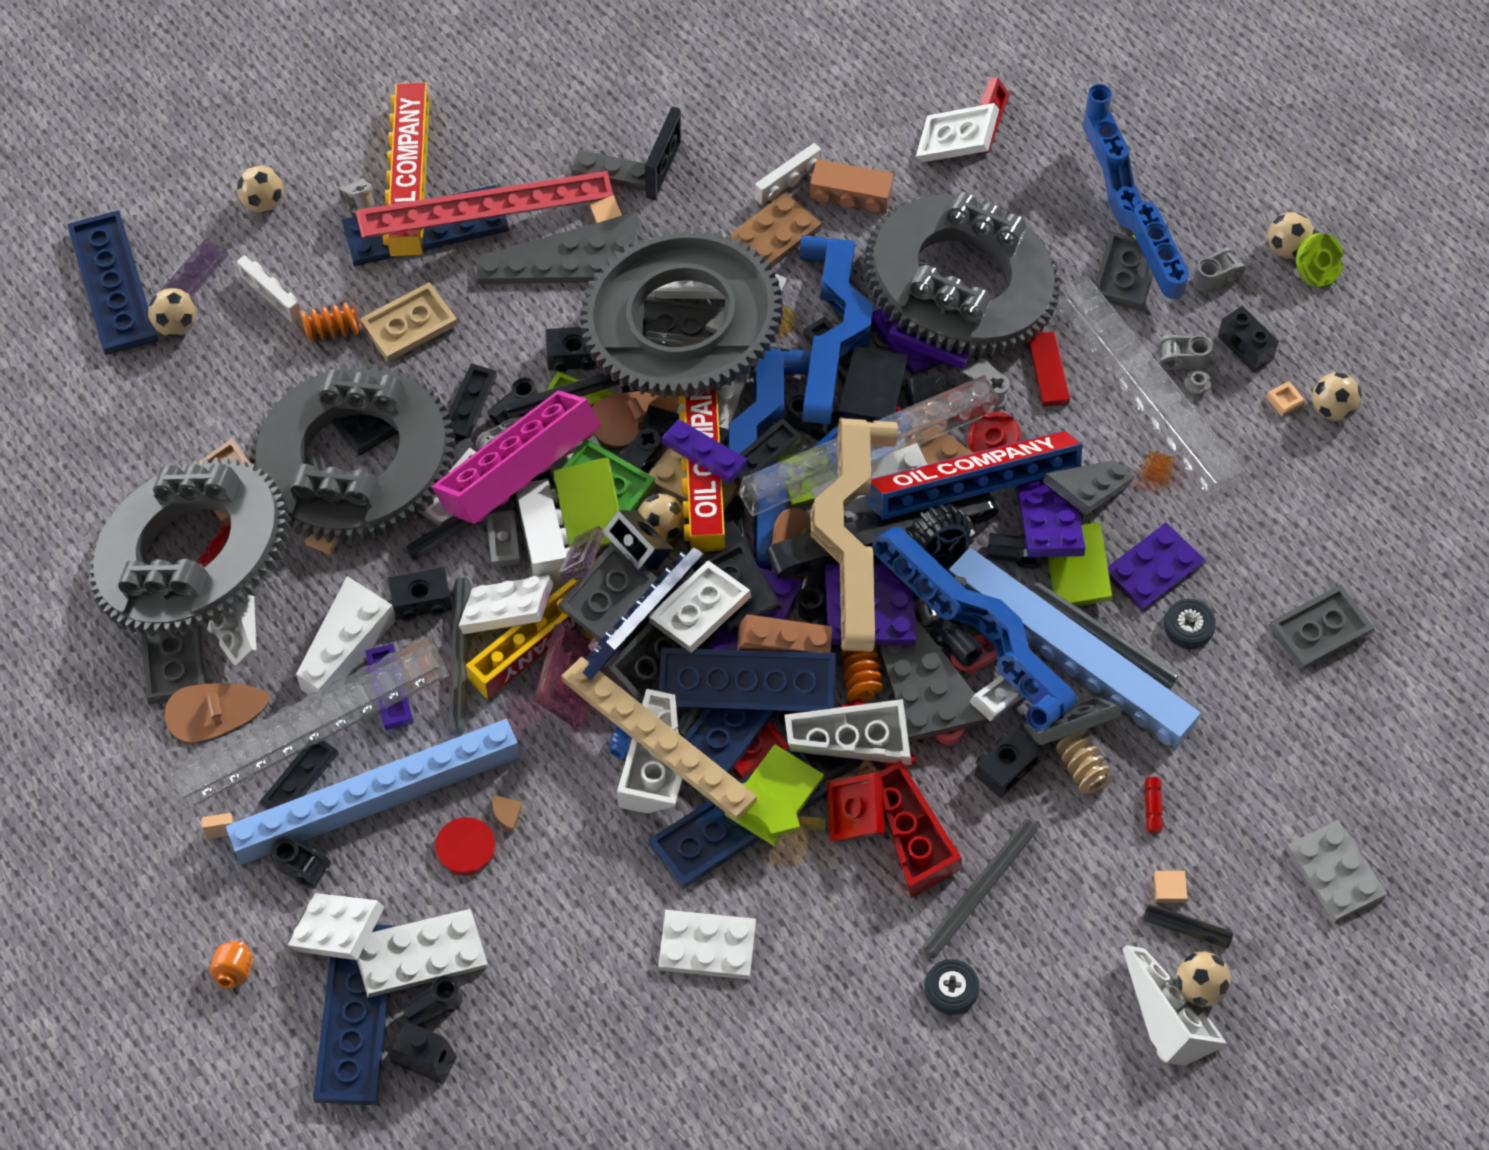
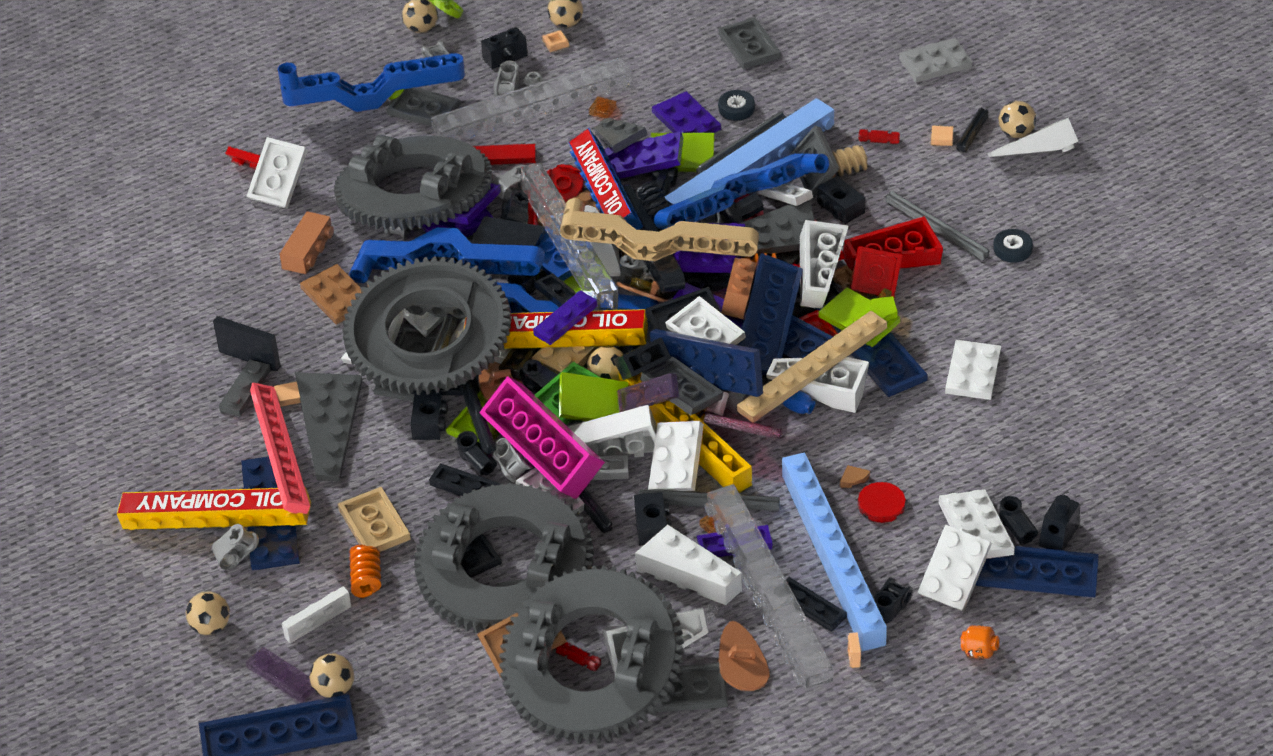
camera: 80 degrees left, 15 degrees down
(787, 174) = (284, 278): white plate -> none

